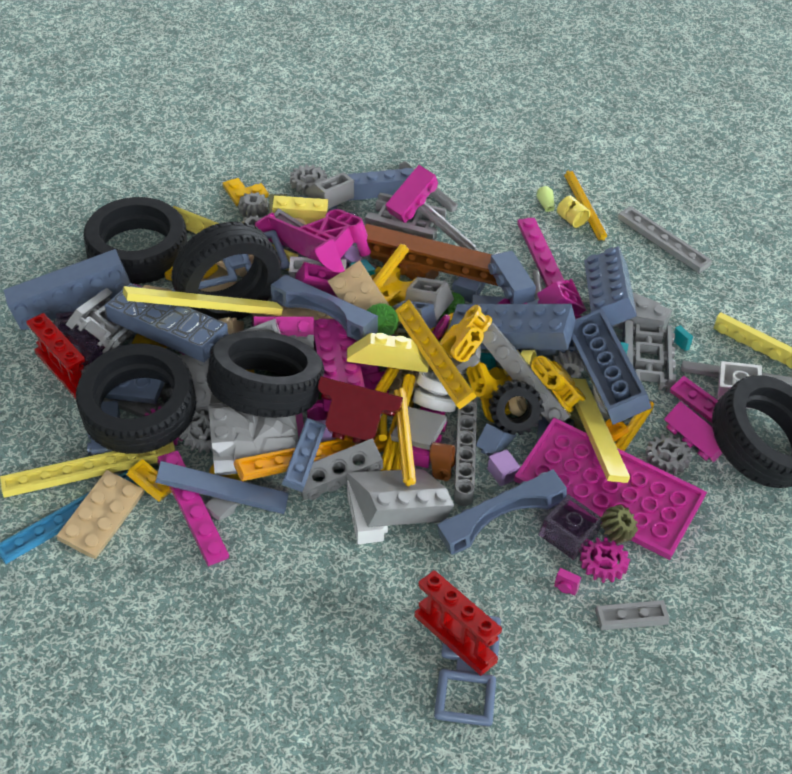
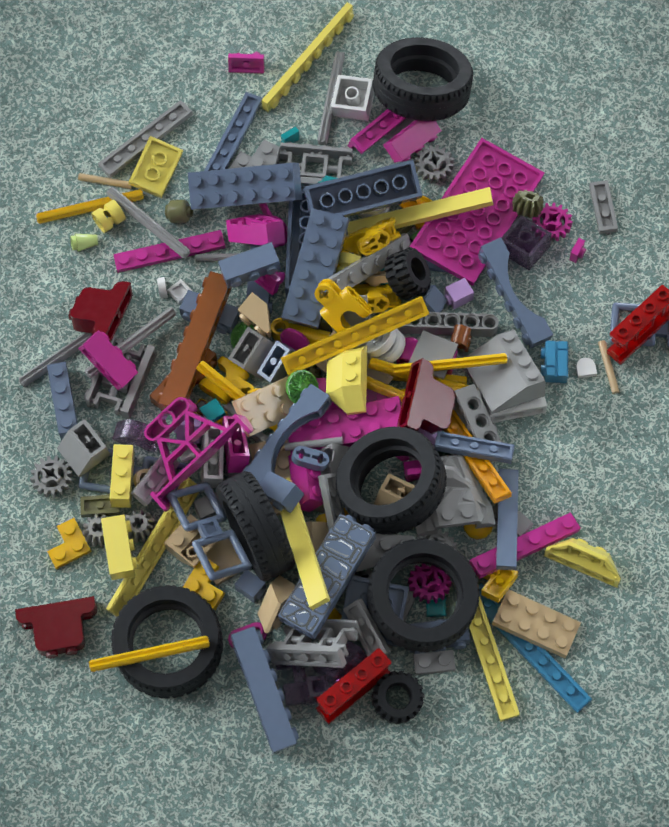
camera: 85 degrees left, 20 degrees up
(43, 393) = (410, 685): none -> black tyre
(77, 435) = (434, 662): none -> light grey plate
(118, 219) = (149, 653): none -> yellow axle
(165, 564) = (585, 559): none -> light yellow wedge
(166, 181) = (58, 625): none -> dark red brick
(228, 204) = (119, 547): none -> light yellow brick
(262, 294) = (281, 492): none -> sand blue brick
(301, 318) = (310, 458): none -> sand blue beam
(317, 328) = (314, 443): none -> light grey bar
(398, 610) = (608, 367): none -> tan bar
(410, 584) = (586, 368): none -> white tile
(418, 551) = (555, 361): none -> dark azure brick
(460, 287) = (256, 313): none -> tan slope
(469, 202) = (101, 309): none -> dark red brick
(500, 245) = (162, 287): none -> white tile
(566, 234) = (148, 222): none -> light grey axle
(581, 253) = (178, 211): none -> olive head
(614, 215) = (103, 180): none -> tan bar
(634, 243) = (155, 167): none -> light yellow tile
(678, 298) = (235, 132): none -> sand blue plate
(767, 309) = (246, 63): none -> dark pink tile

